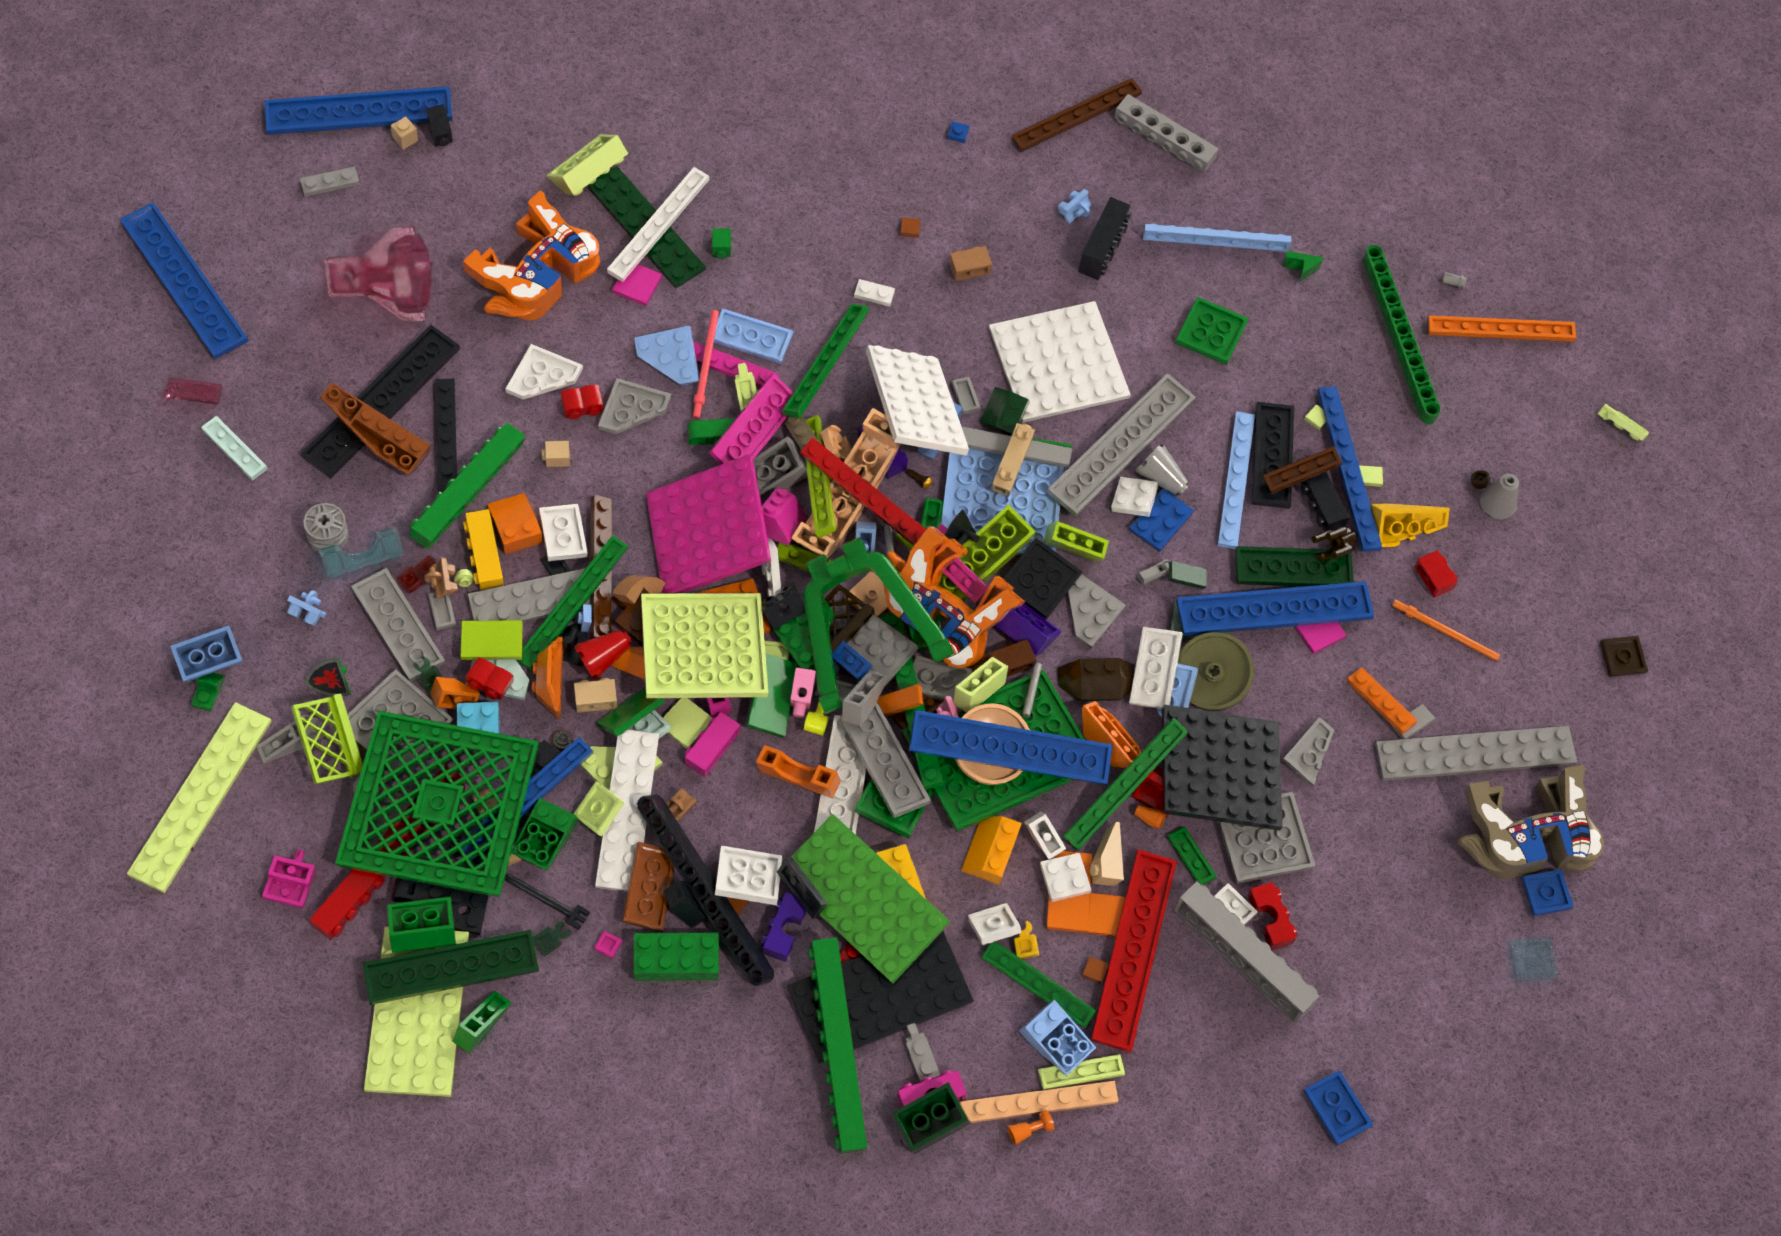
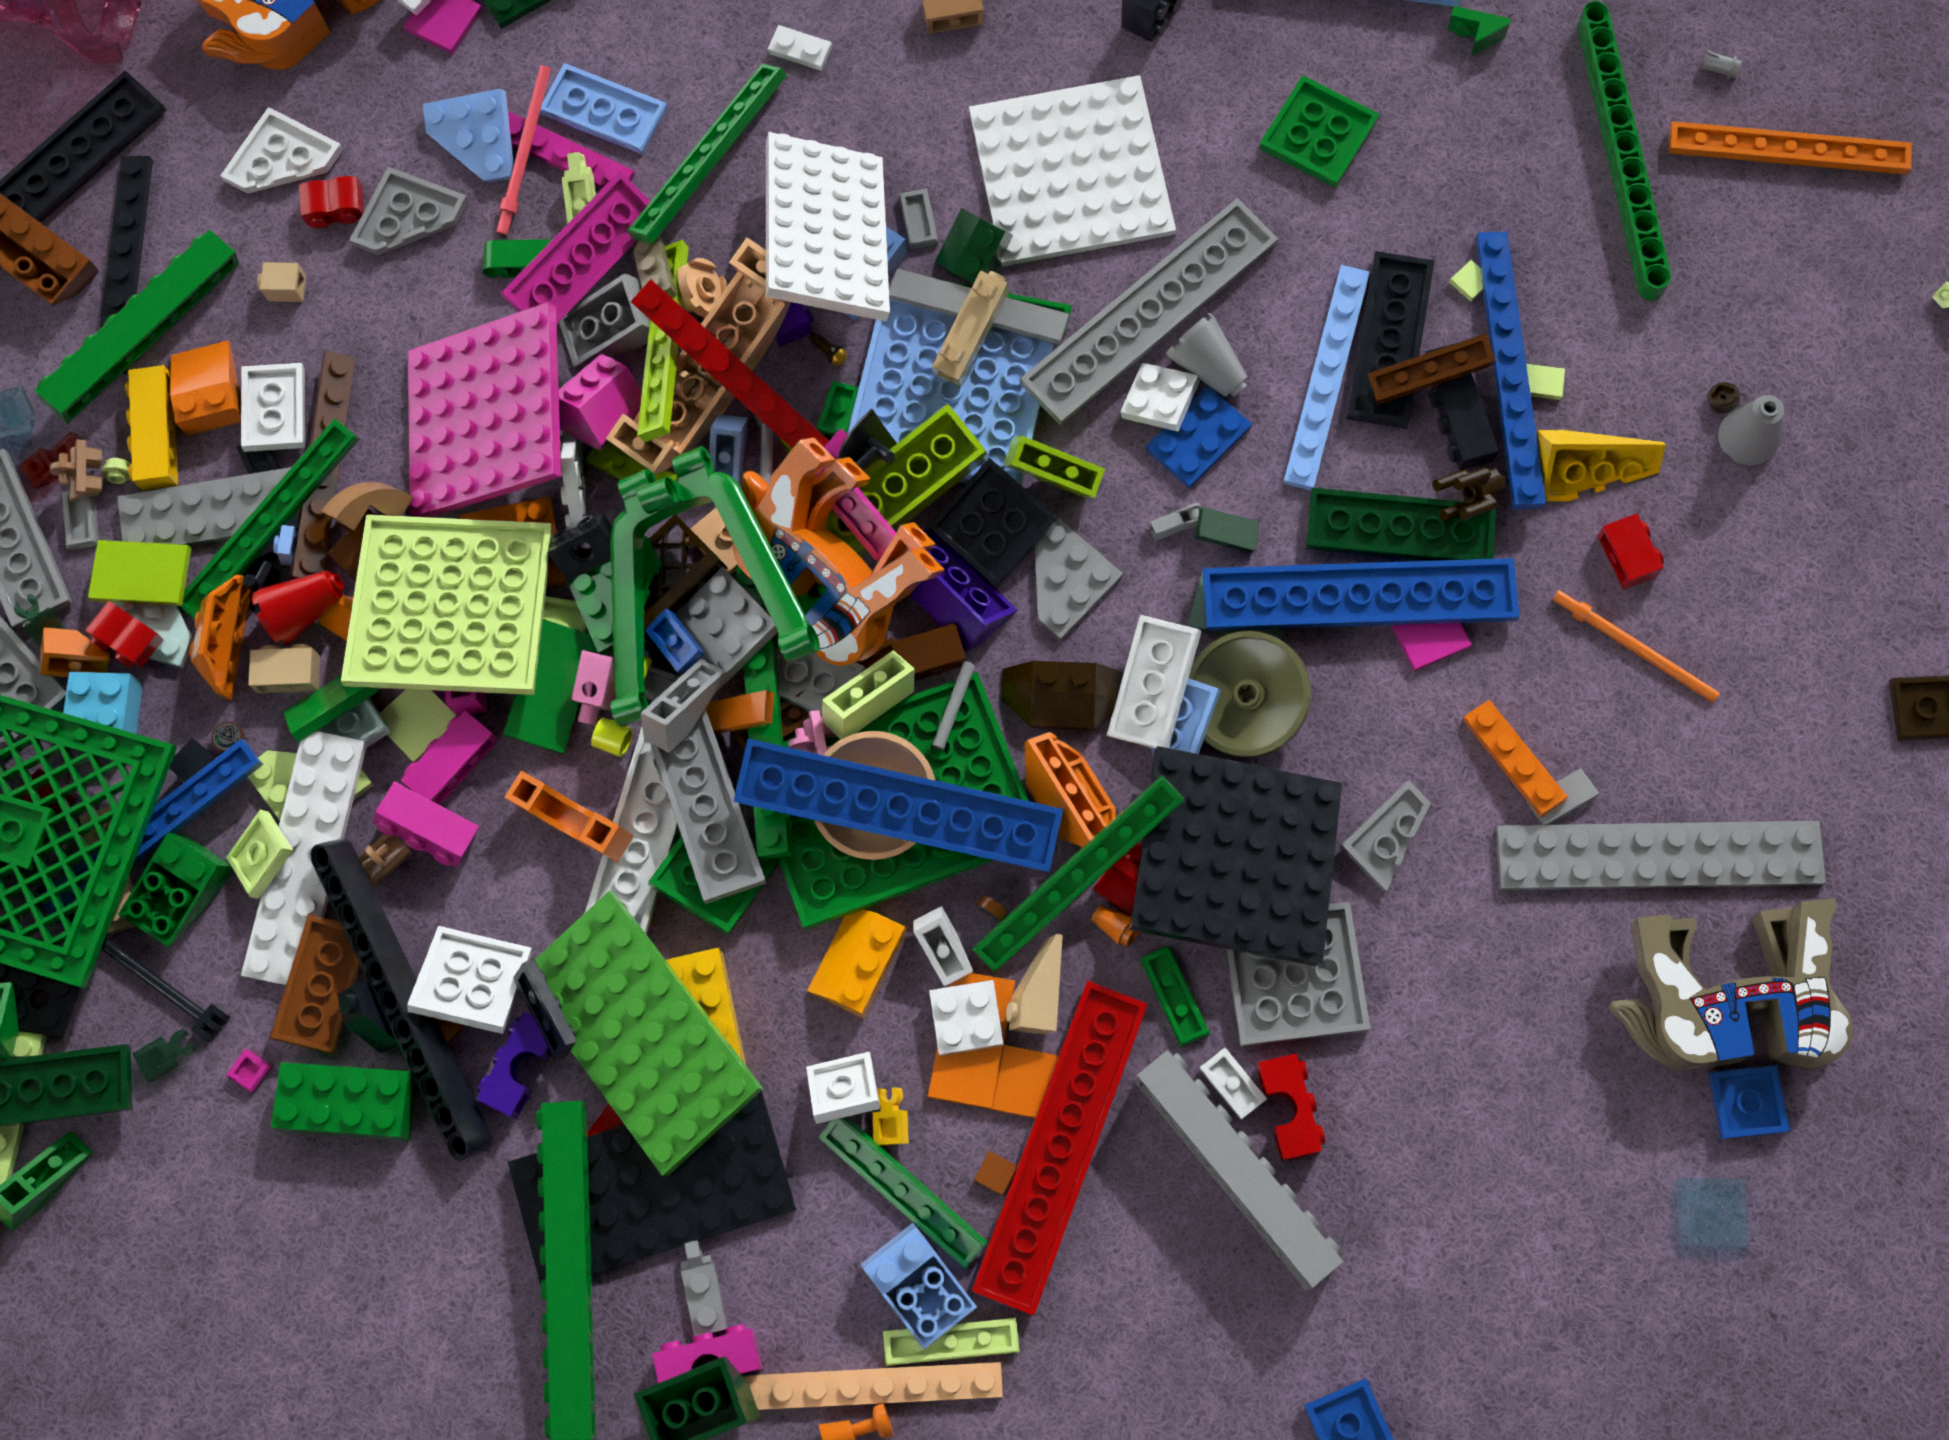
camera: 20 degrees right, 10 degrees up
(705, 783) = (425, 825): none -> dark pink brick
(1071, 811) = (991, 908): none -> reddish brown tile

